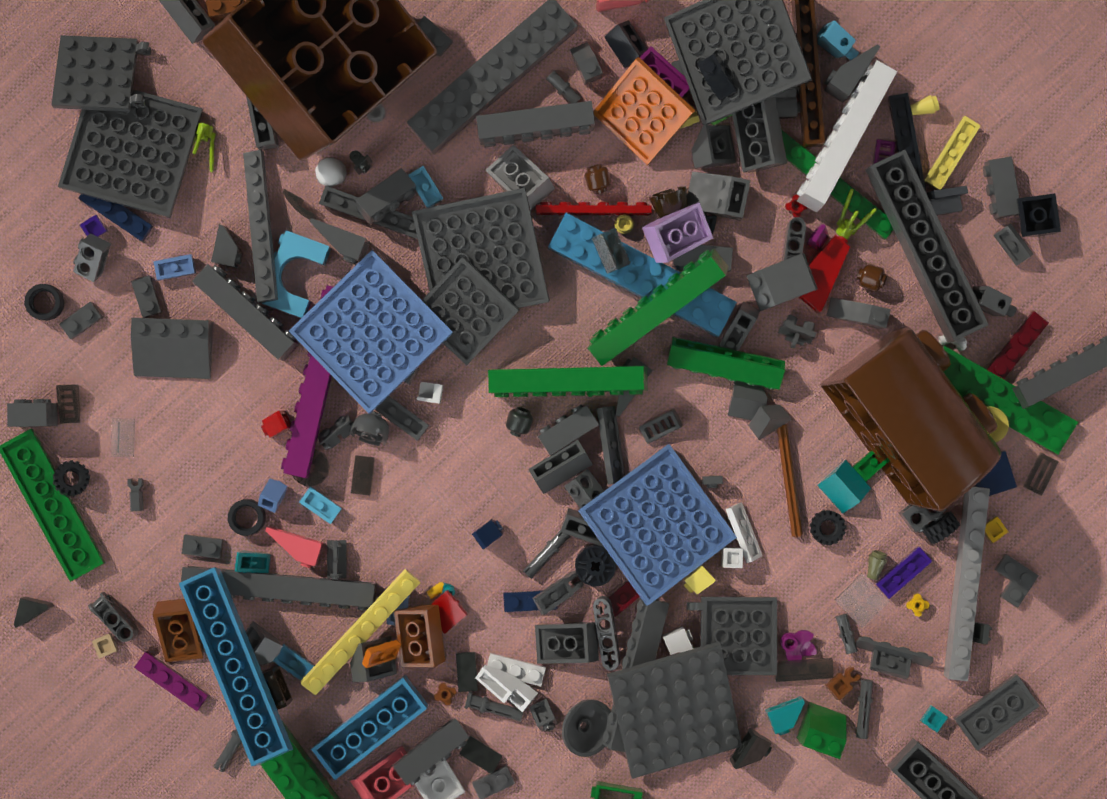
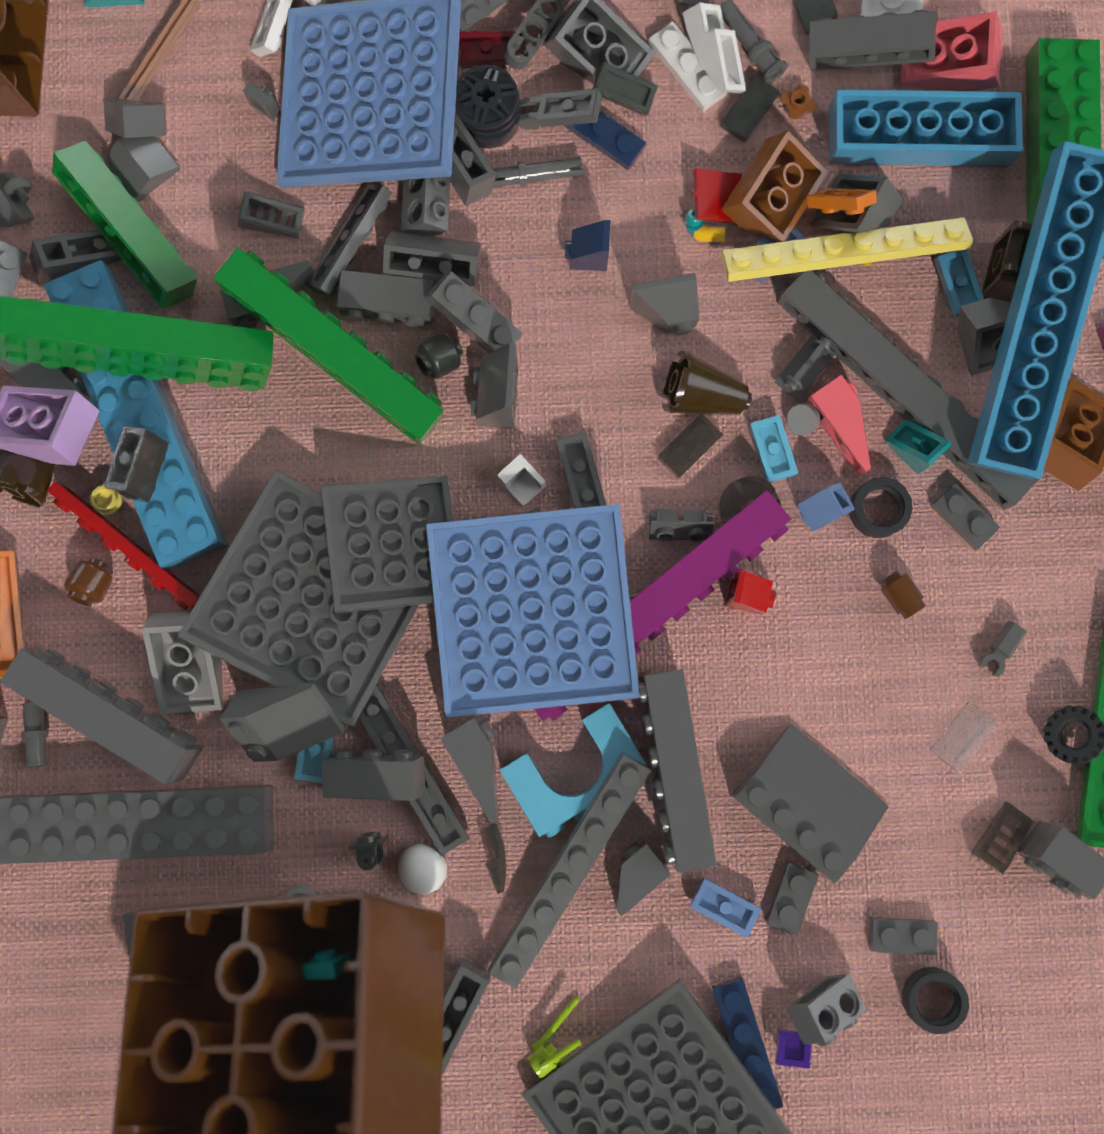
camera: 145 degrees left, 5 degrees down
(203, 482) = (902, 594): none -> reddish brown brick
(317, 531) = (803, 418): none -> light grey tile
(331, 97) = (326, 965): none -> teal plate
(371, 428) = (632, 491): dark grey cylinder -> none
(377, 506) = (703, 389): none -> dark brown cone
(425, 535) = (668, 303): none -> dark grey slope
(448, 186) = (280, 720): none -> dark grey slope
(475, 425) = (496, 388): none -> dark grey slope
(515, 453) = (471, 313): none -> dark grey brick
(536, 630) = (625, 88): none -> pearl dark grey tile

